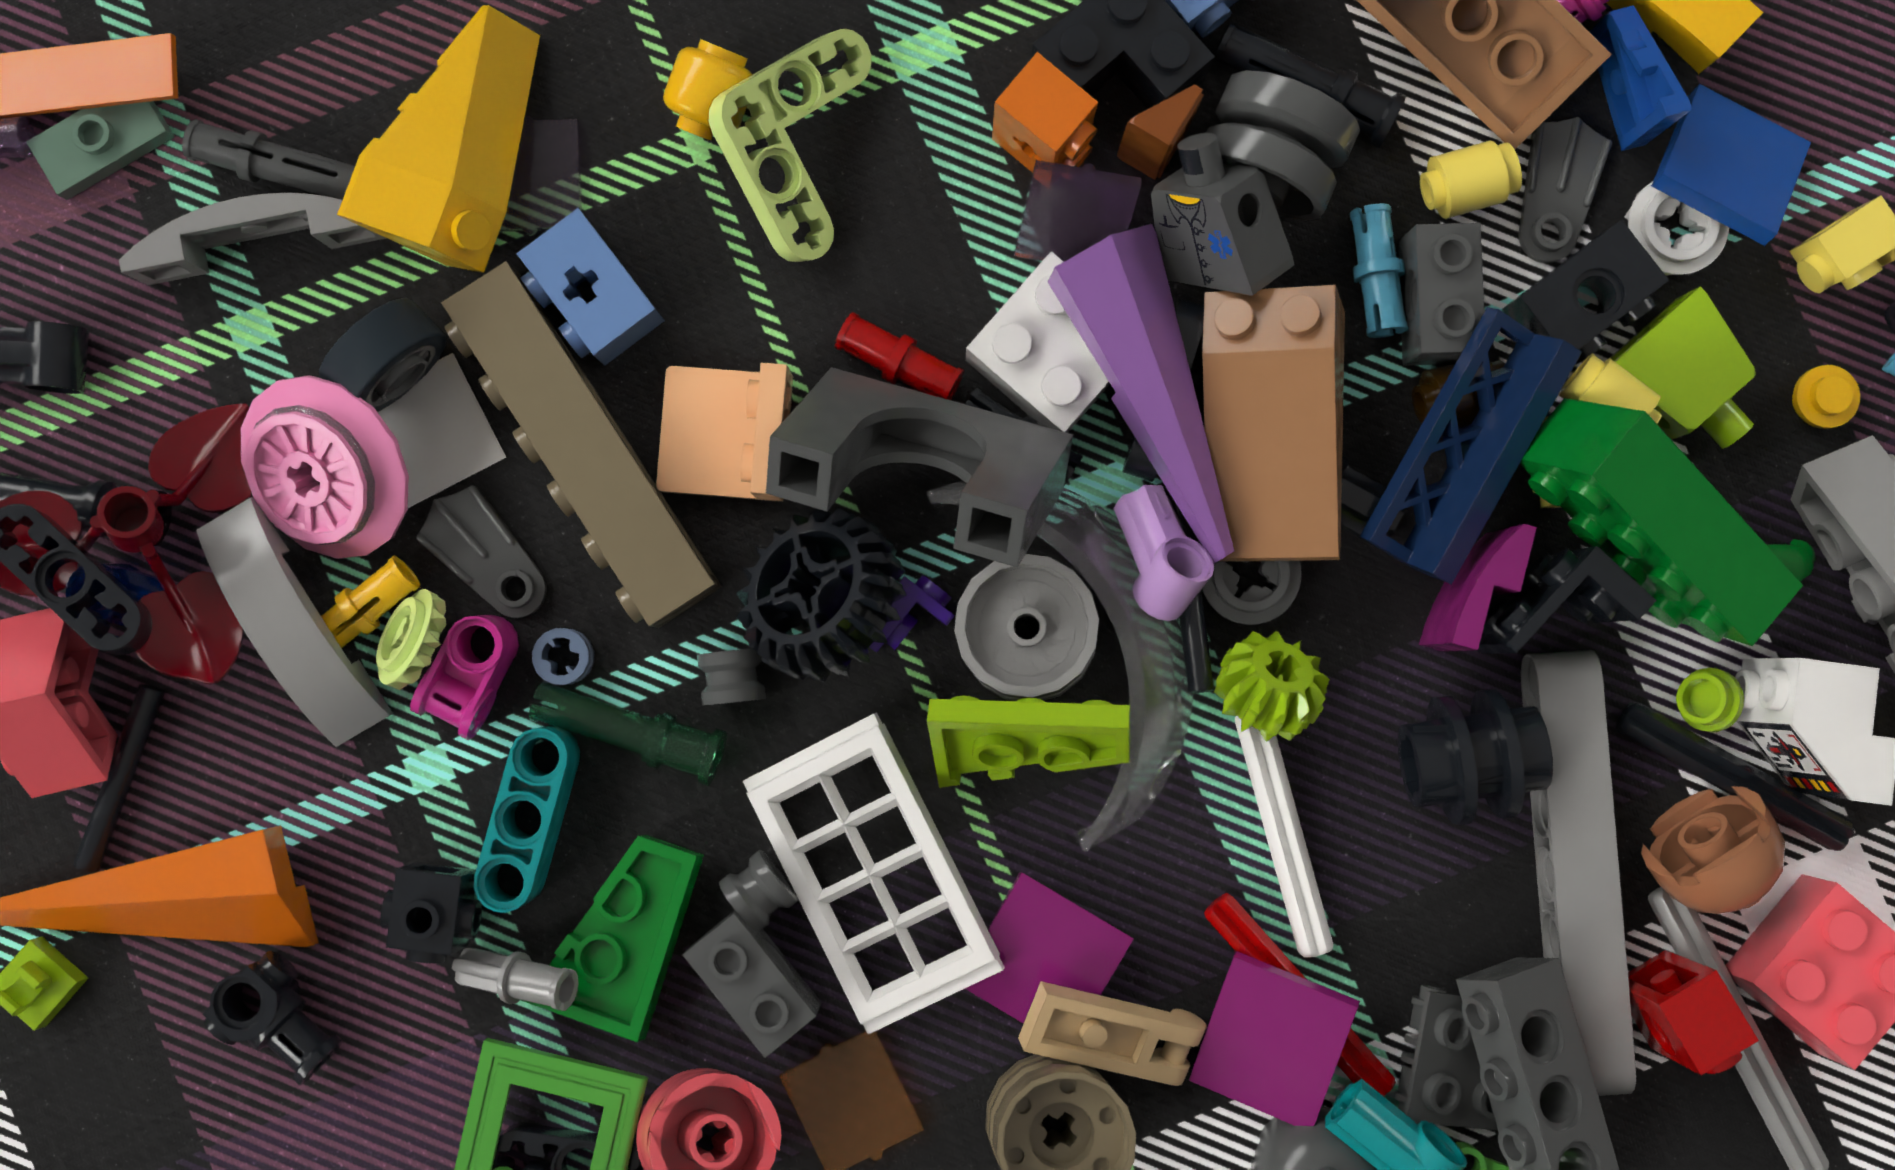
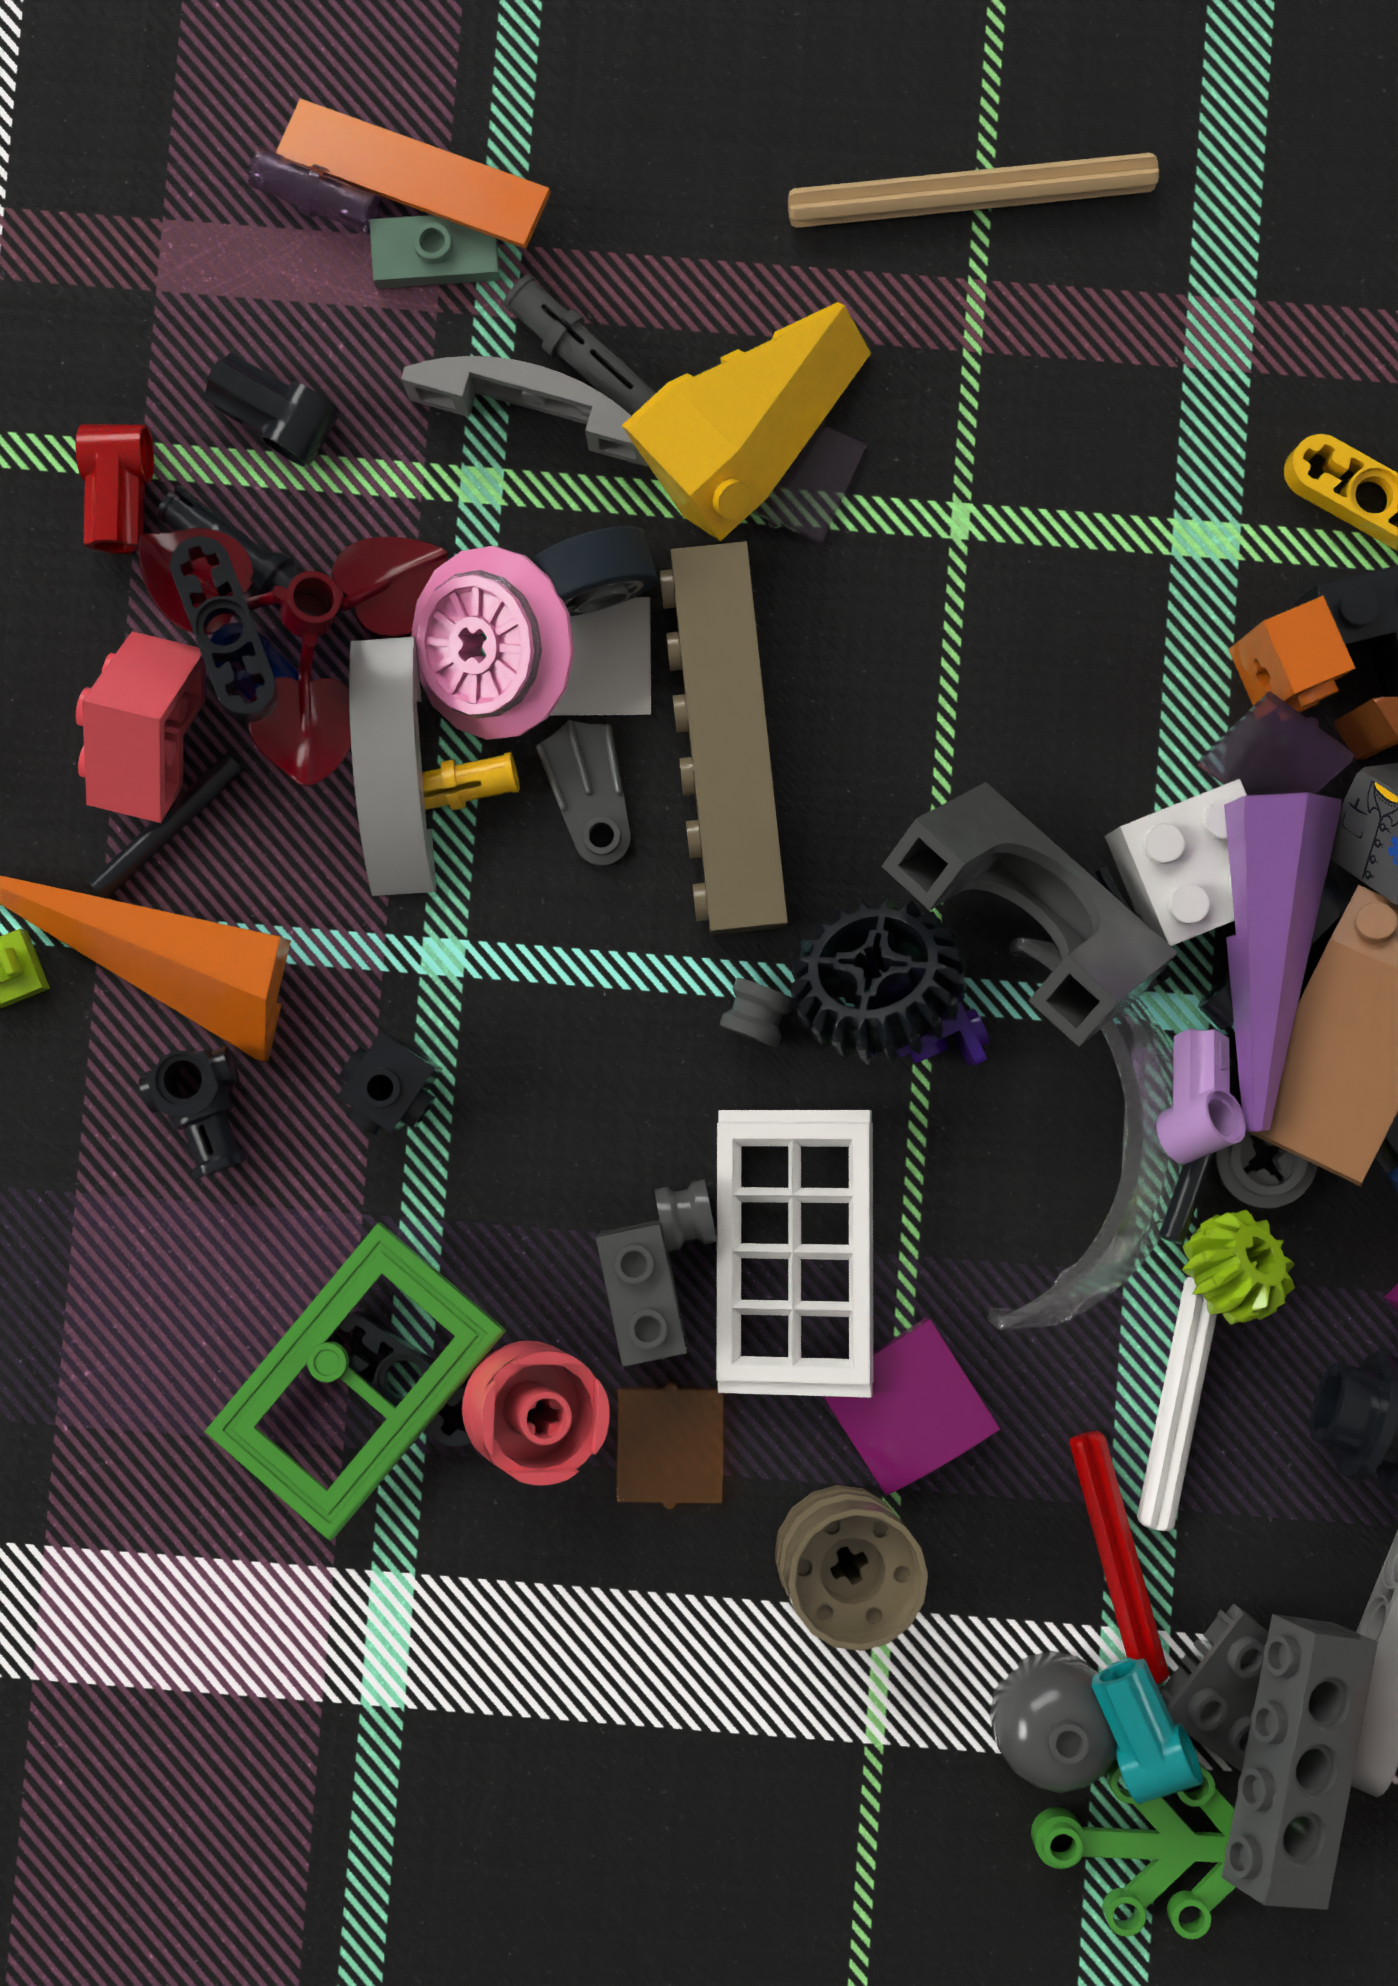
camera: 25 degrees right, 0 degrees up
(410, 639) = (491, 833): yellowish green gear -> none
(459, 683) = (519, 892): dark pink piece -> none
(505, 839) = (483, 1057): teal beam -> none
(516, 978) = (432, 1182): light grey axle -> none
(548, 668) = (633, 915): sand blue bush -> none
(565, 259) = (809, 565): medium blue brick -> none
(629, 938) = (539, 1202): green wing -> none
(658, 739) = (662, 1035): clear green pin -> none
(697, 80) = (1001, 478): yellow head -> none
(720, 429) = (860, 791): light nougat bracket -> none
(769, 120) = (1043, 534): yellowish green beam -> none
(898, 358) = (1048, 803): red pin -> none
(1003, 735) = (986, 1191): lime wing -> none
(1035, 666) = (1070, 1136): light grey wheel -> none
(1110, 1034) = (937, 1503): tan plate -> none
(1274, 1041) = (1079, 1585): magenta slope -> none

